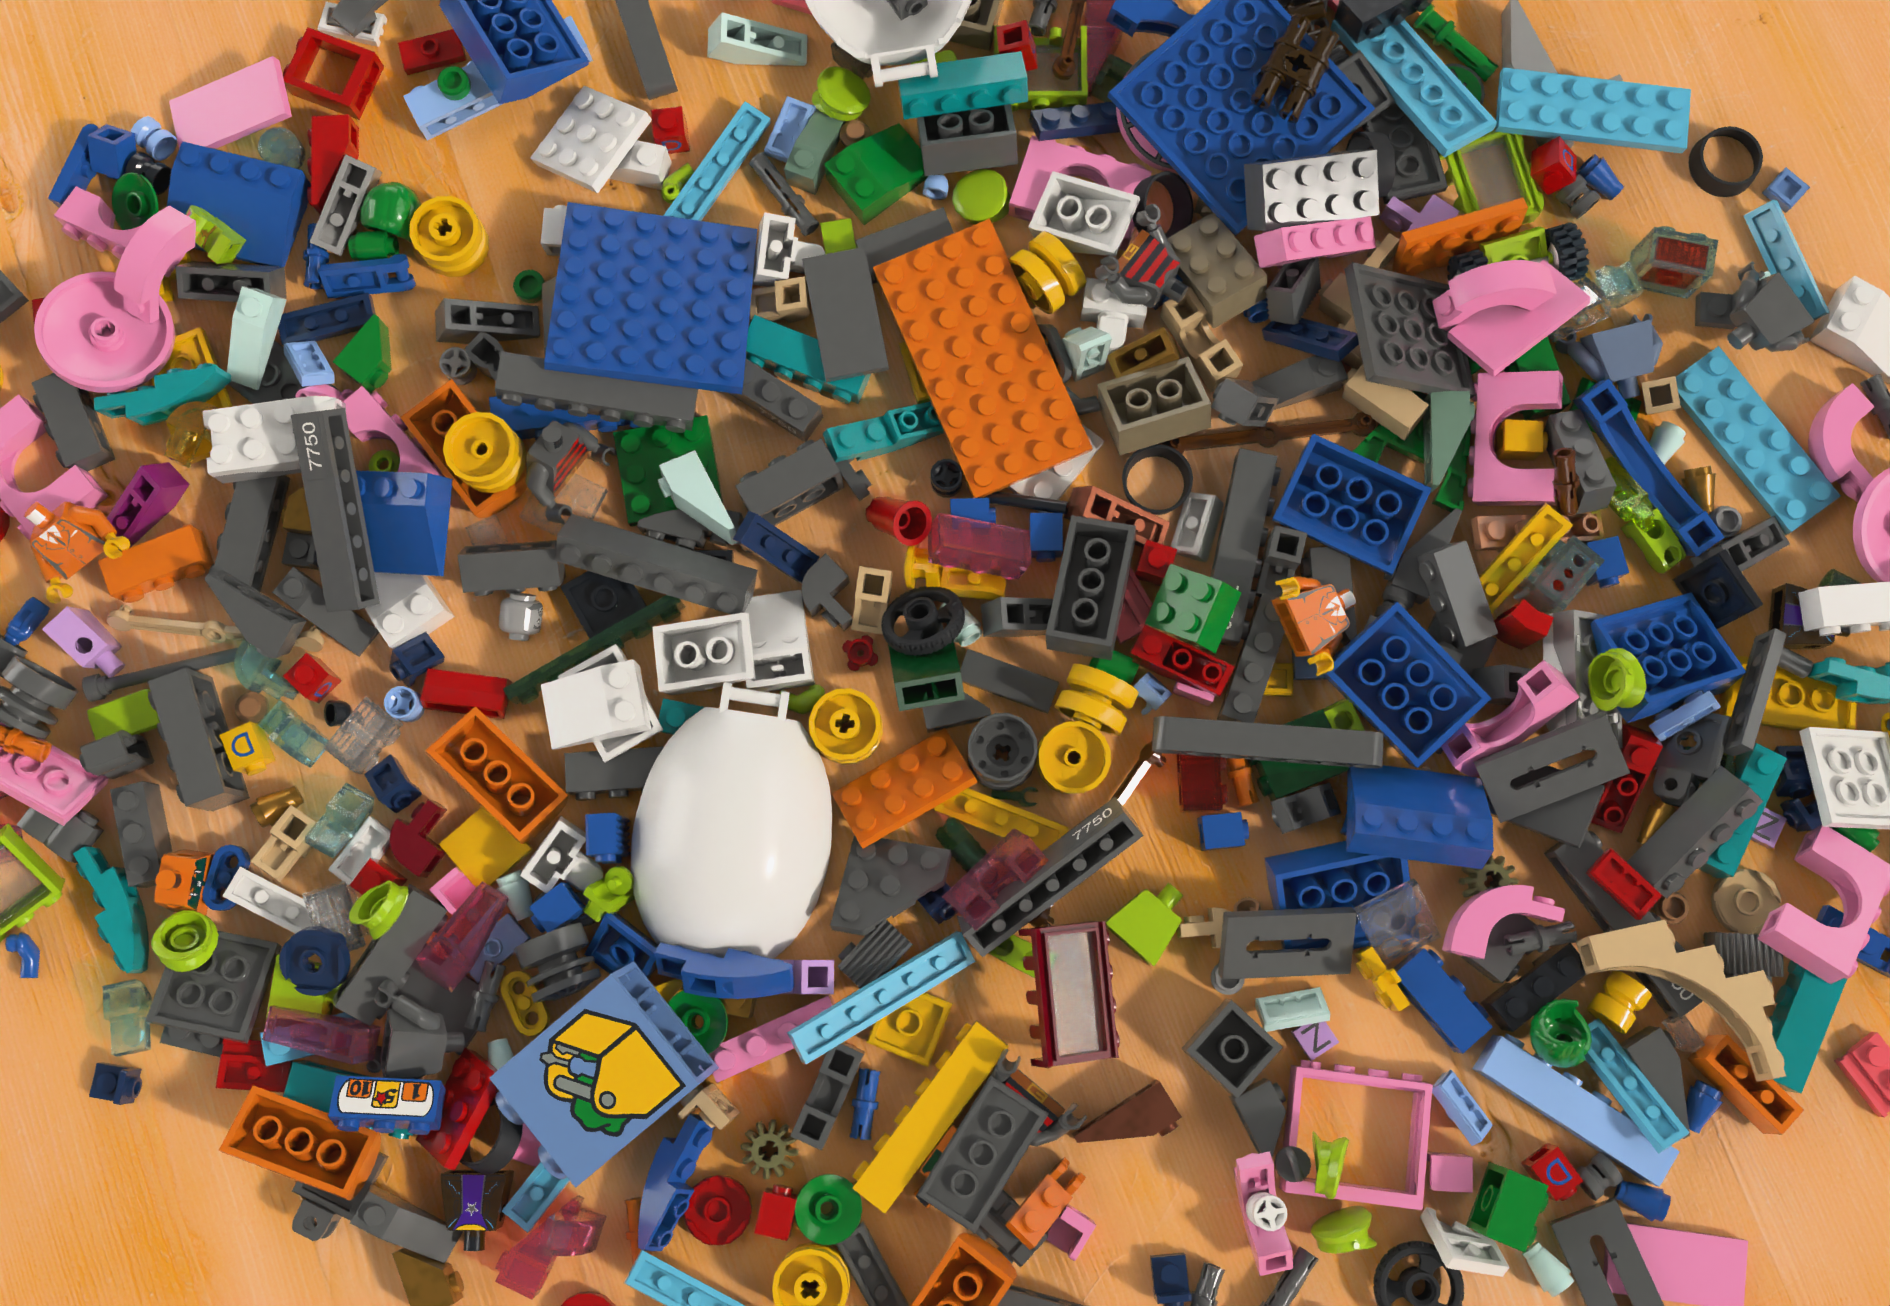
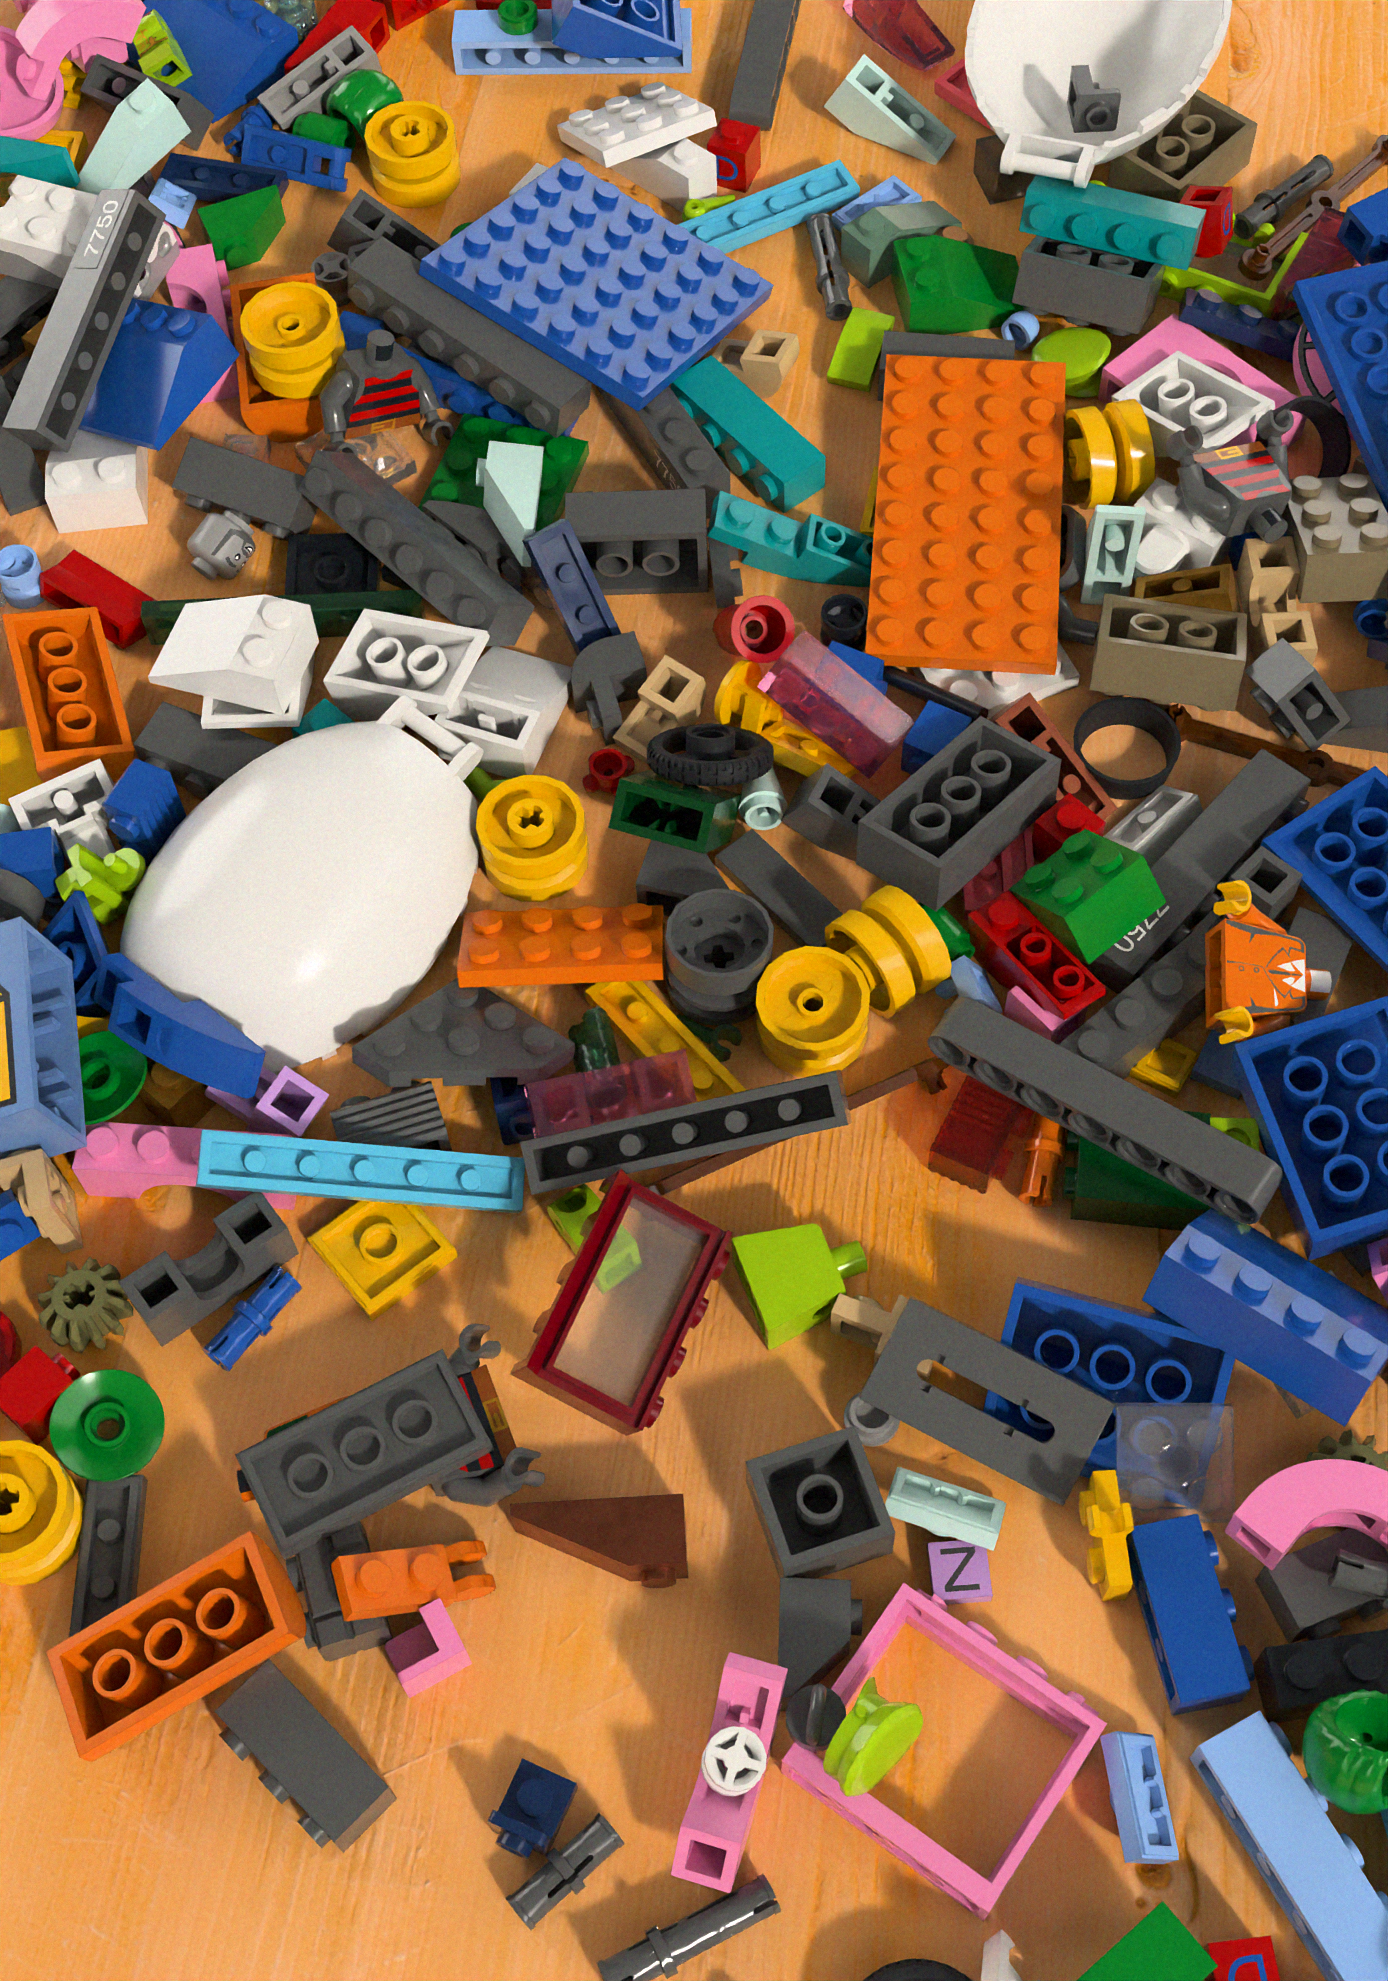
camera: 30 degrees right, 20 degrees down
(414, 658) = (67, 531): dark blue bracket -> none
(779, 250) = (786, 305): white brick -> none
(841, 94) = (960, 195): lime piece -> none
(845, 314) = (822, 394): dark grey tile -> none
(929, 1117) = (232, 1413): yellow brick -> none
(1222, 831) = (974, 1212): blue brick -> none
(1305, 808) = (1112, 1240): dark grey brick -> none
(1344, 1230) = (844, 1877): lime piece -> none
(1450, 1172) = (1067, 1884): bright pink panel -> none

